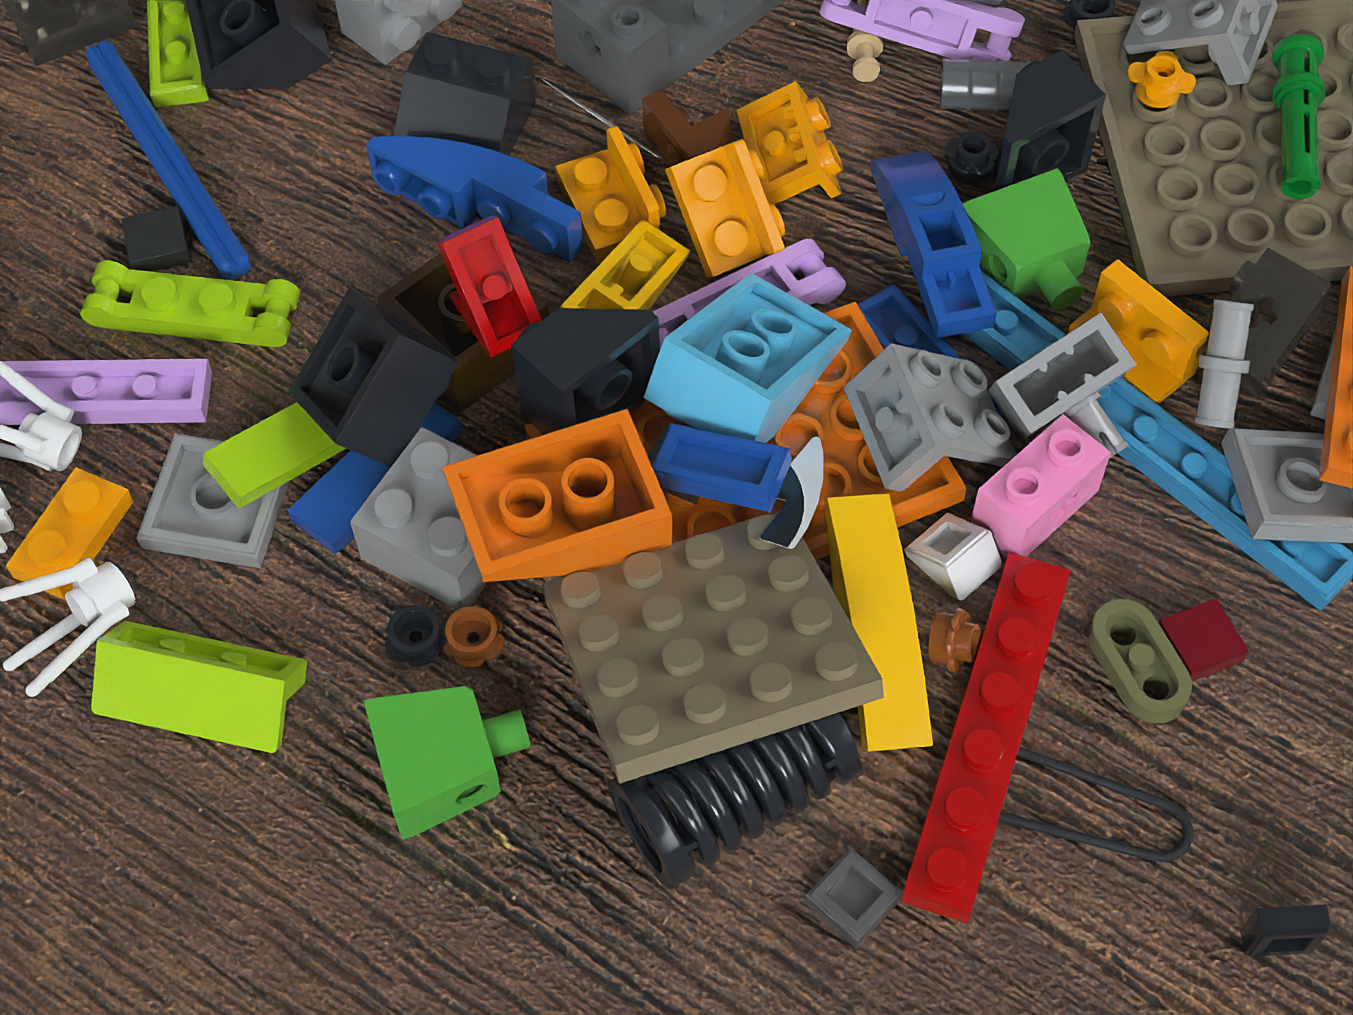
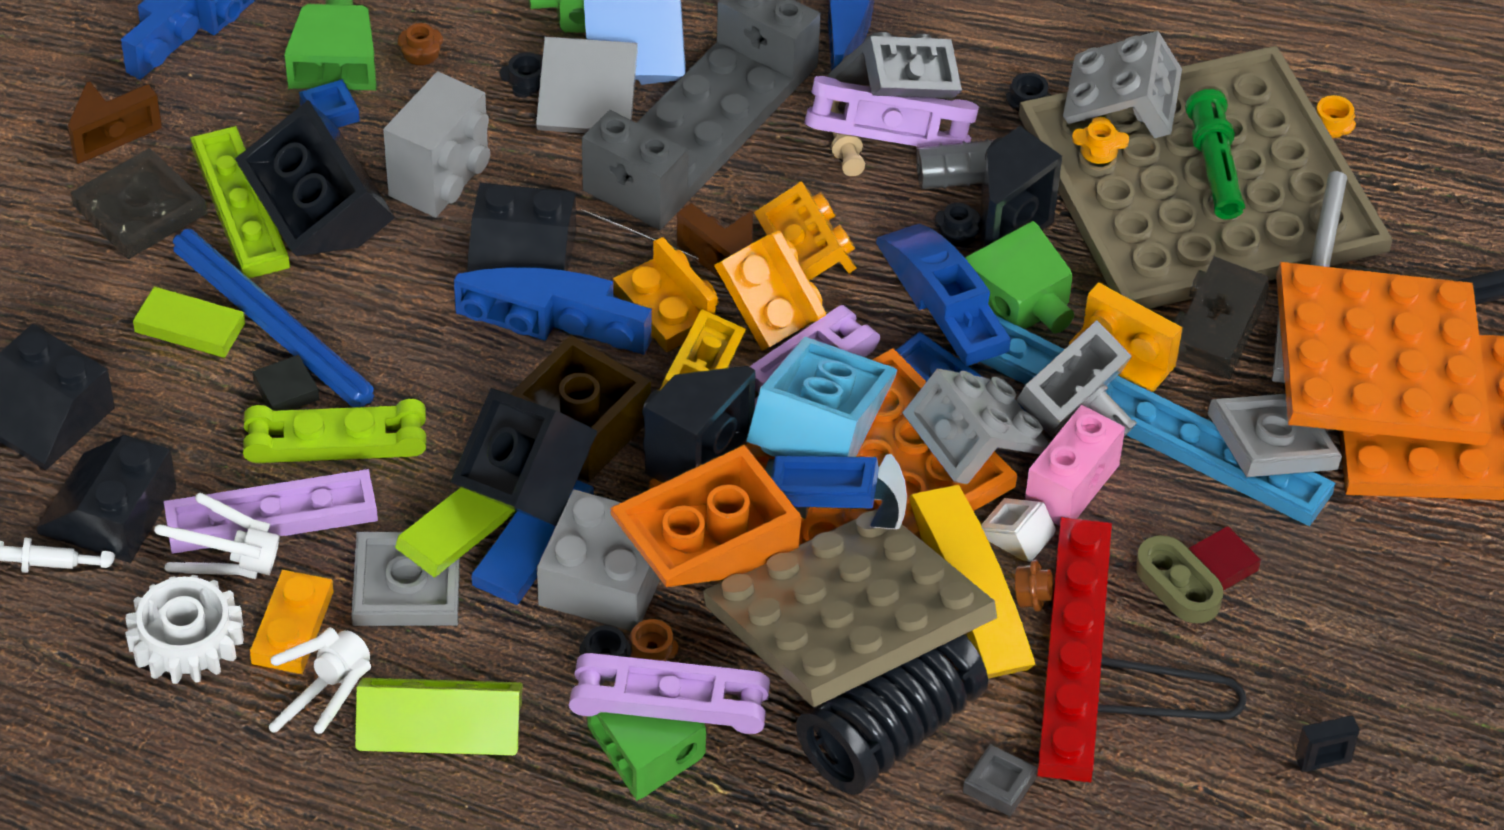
camera: 15 degrees left, 10 degrees down
(76, 148) = (189, 322): none -> lime tile
(458, 719) = (670, 691): none -> lavender plate
(488, 284) = (607, 370): red slope -> none
(1223, 363) = (1198, 349): light grey pin -> none

